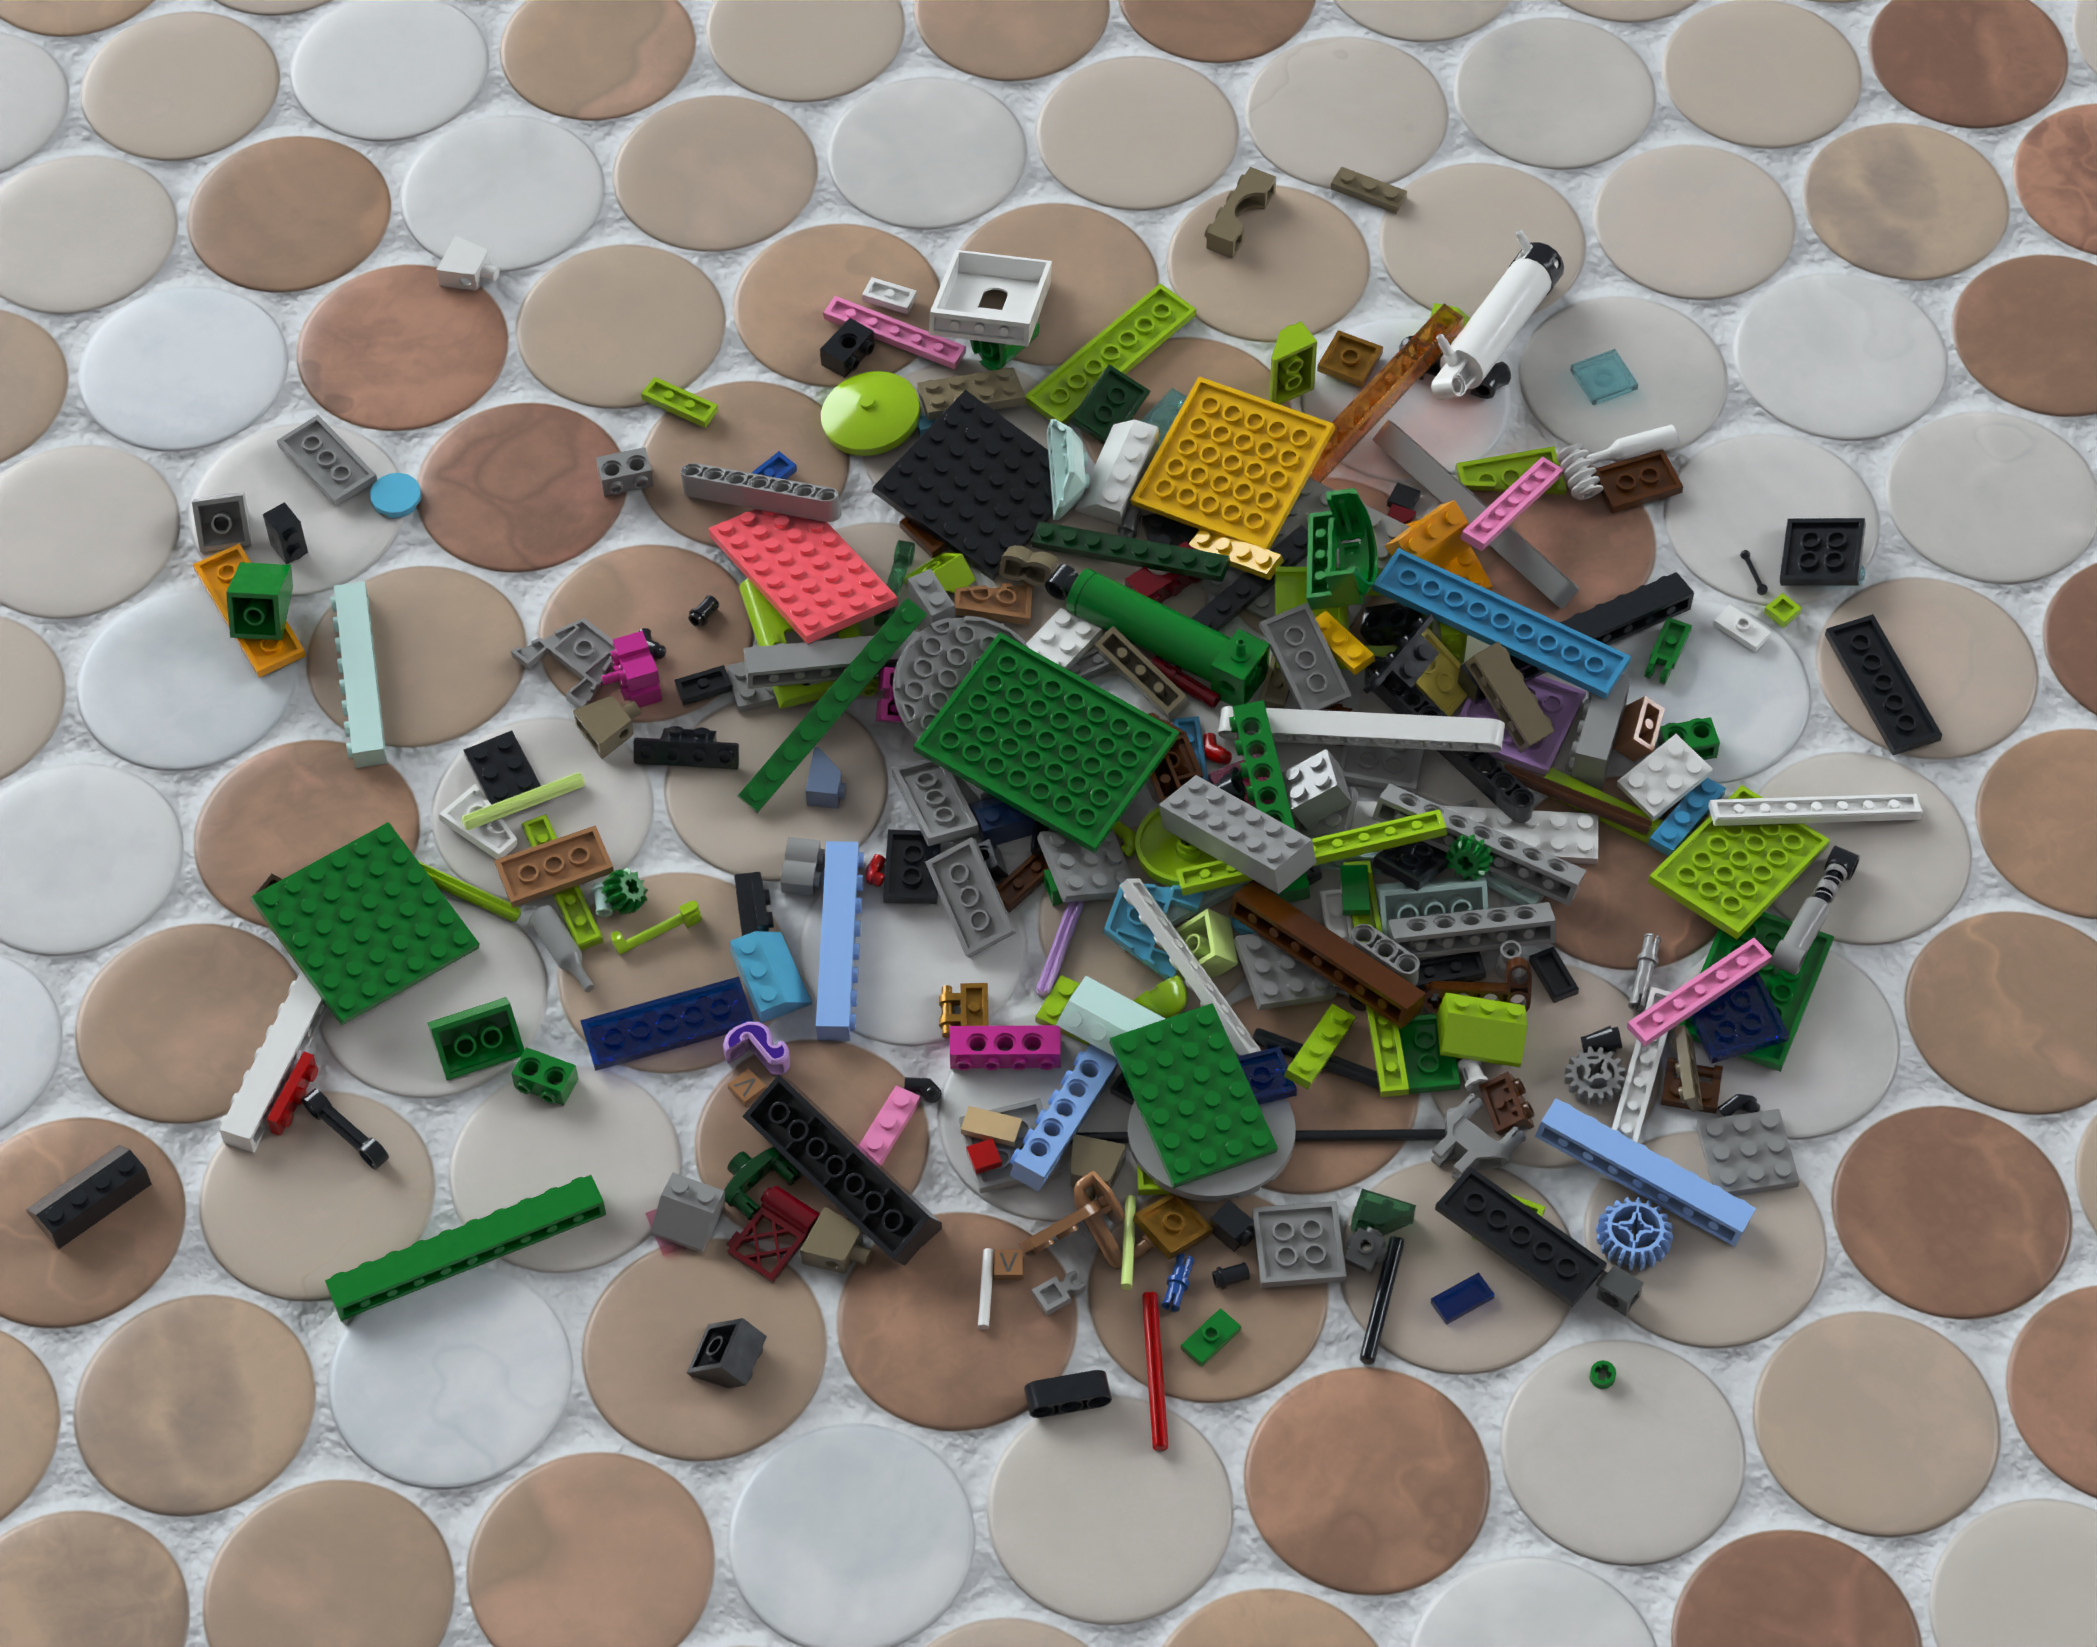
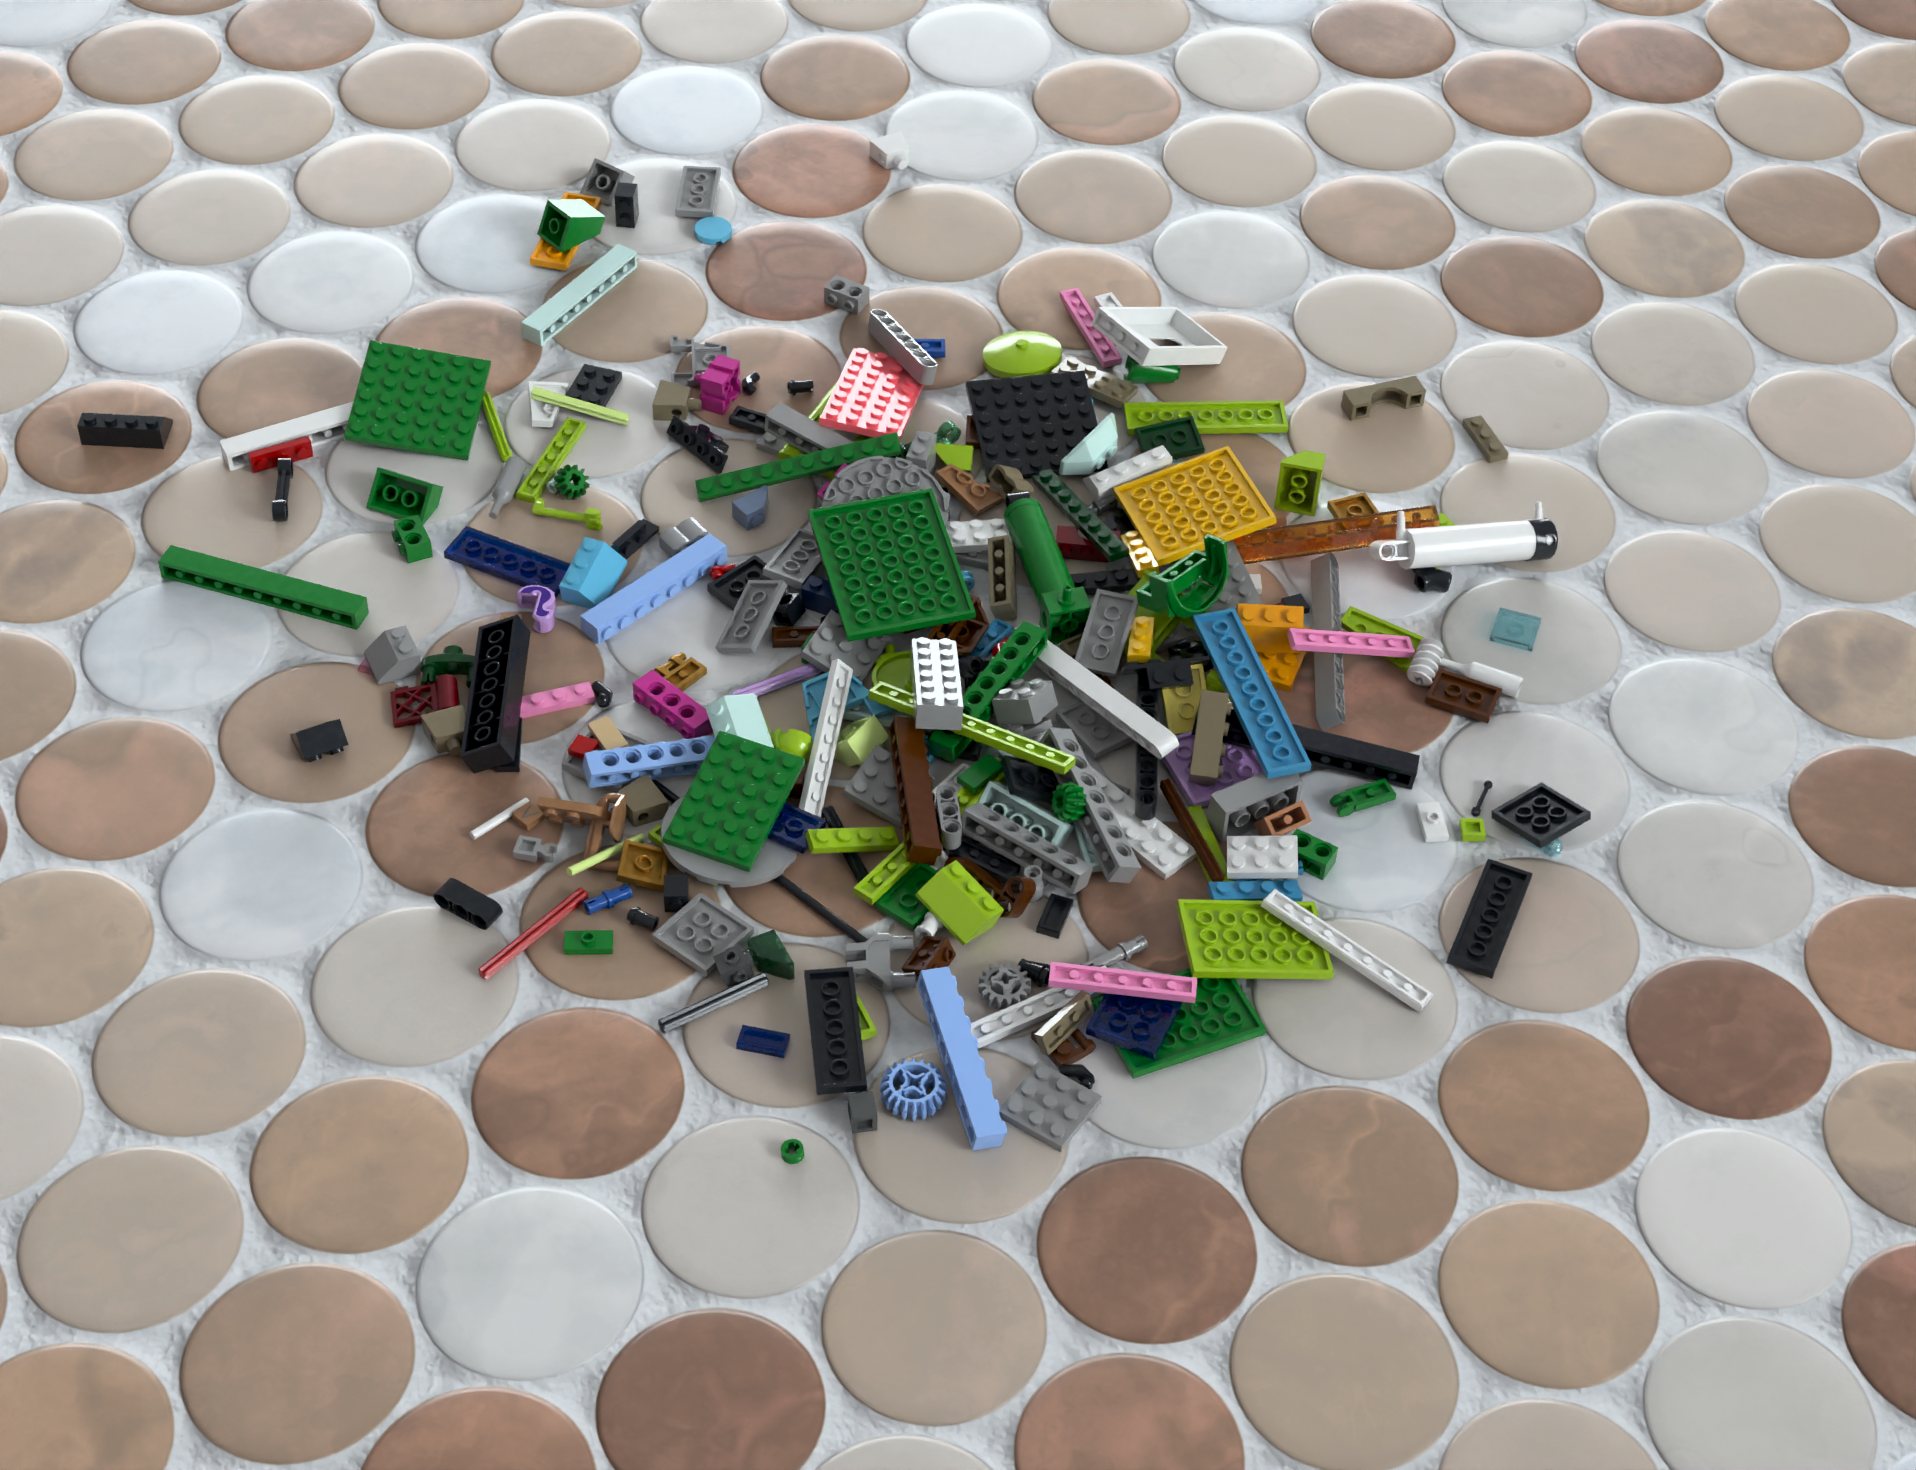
camera: 40 degrees right, 10 degrees down
(554, 866) = (551, 444): medium nougat plate -> none
(679, 402) = (922, 283): lime plate -> none
(847, 348) = (1052, 316): black brick -> none
(1187, 684) = (1026, 598): dark red pin -> none
(1793, 948) = (1215, 1008): light grey piece -> none

